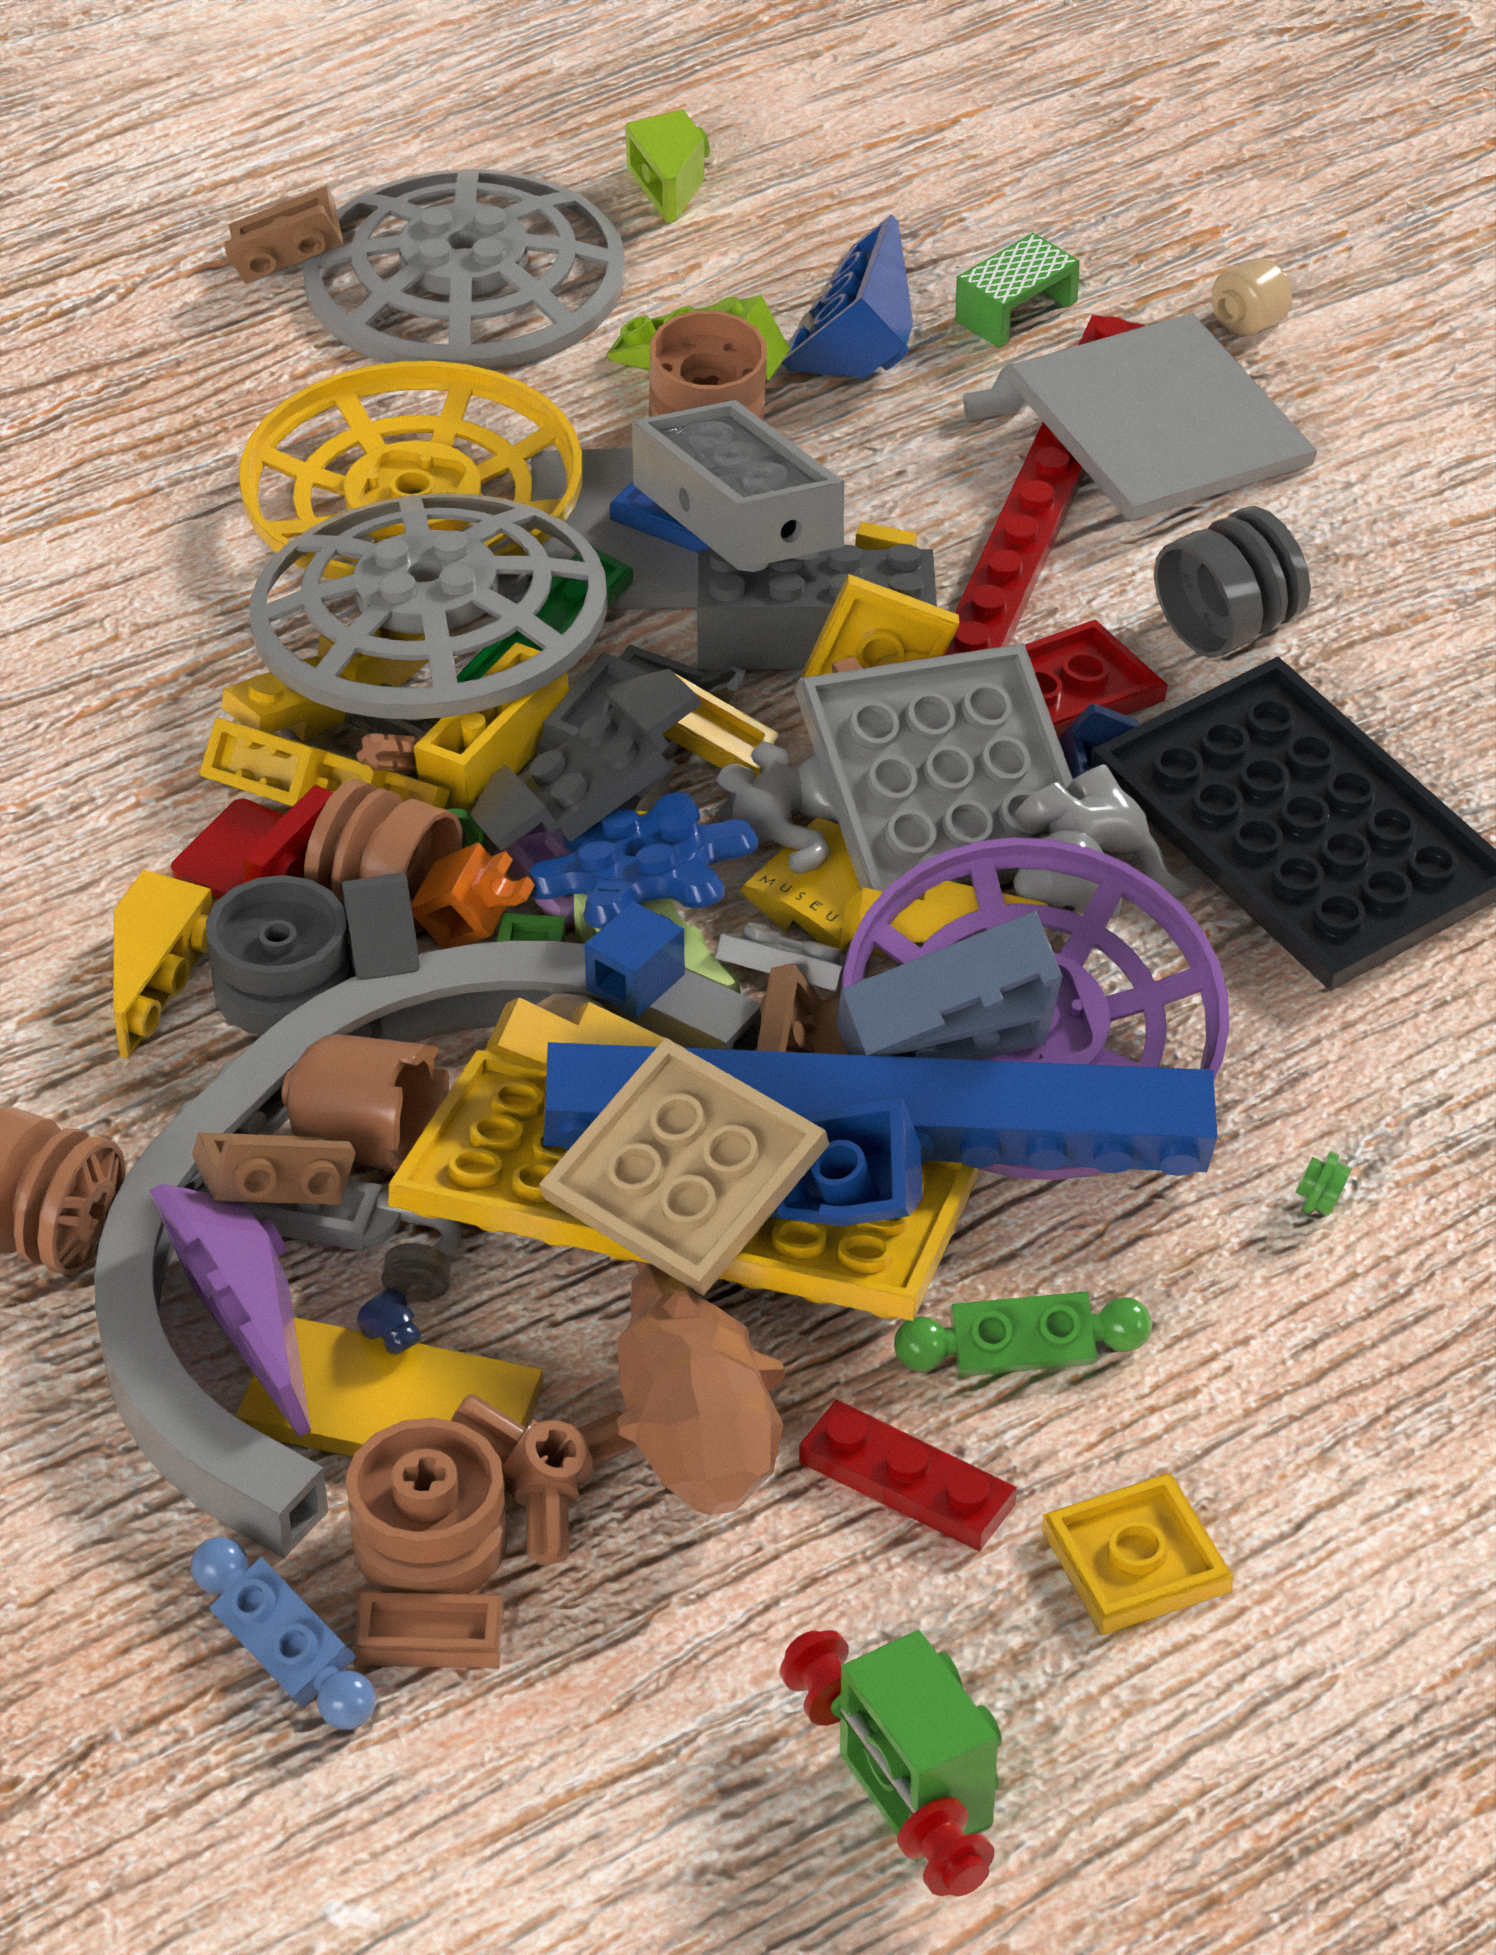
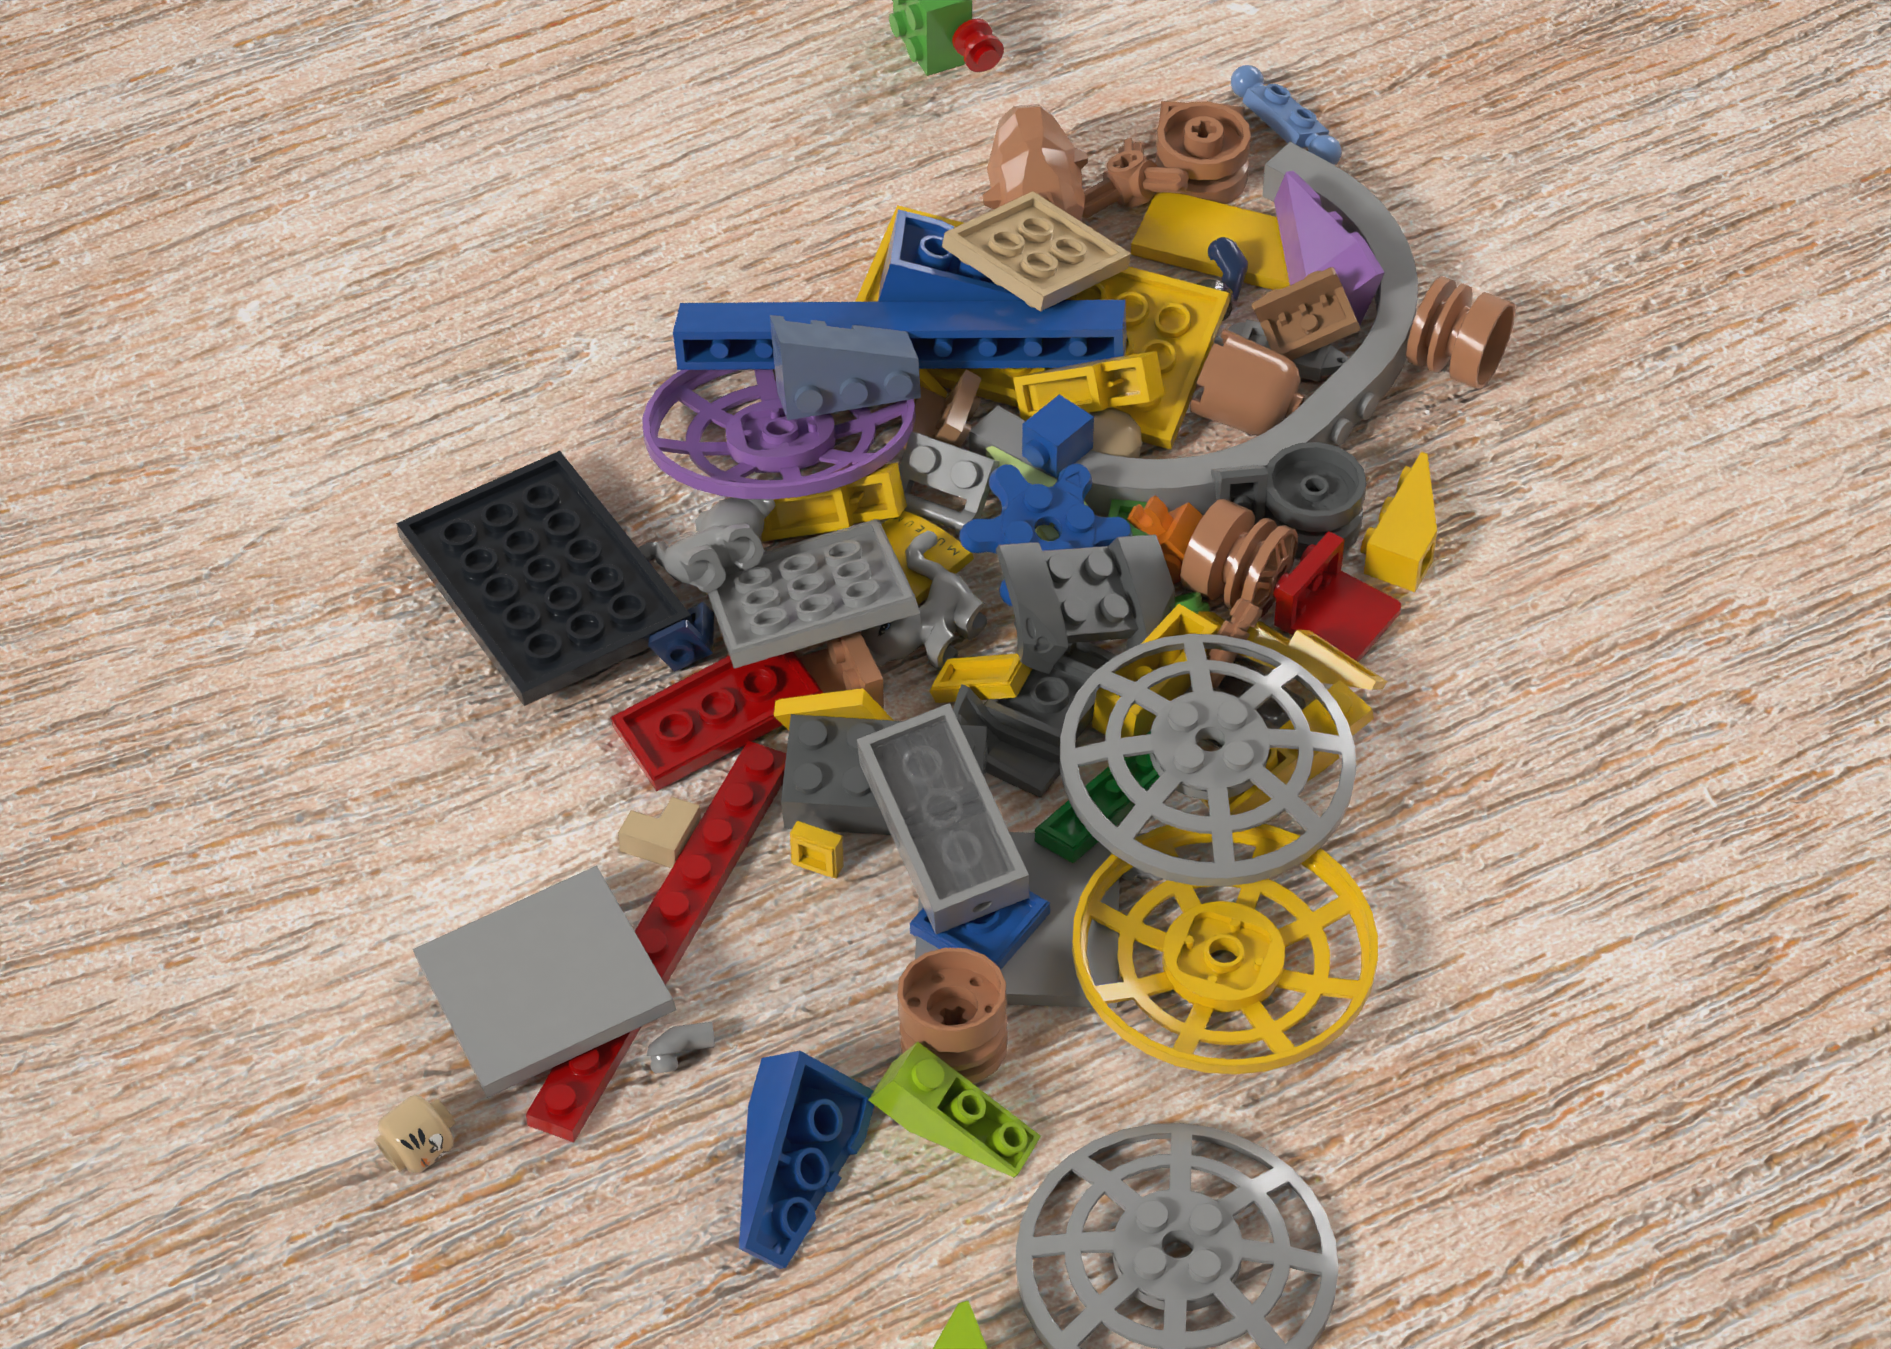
camera: 175 degrees left, 5 degrees up
(284, 235) = (1359, 1270): medium nougat bracket -> none
(907, 1475) = (911, 183): red plate -> none
(1010, 278) = (638, 1159): bright green panel -> none
(1023, 1334) = (810, 245): bright green plate -> none
(1070, 569) = (660, 838): none -> tan piece
(1136, 1553) = (785, 138): yellow tile -> none
(1232, 581) = (529, 768): dark grey wheel -> none
(1322, 1183) = (611, 321): bright green plate -> none

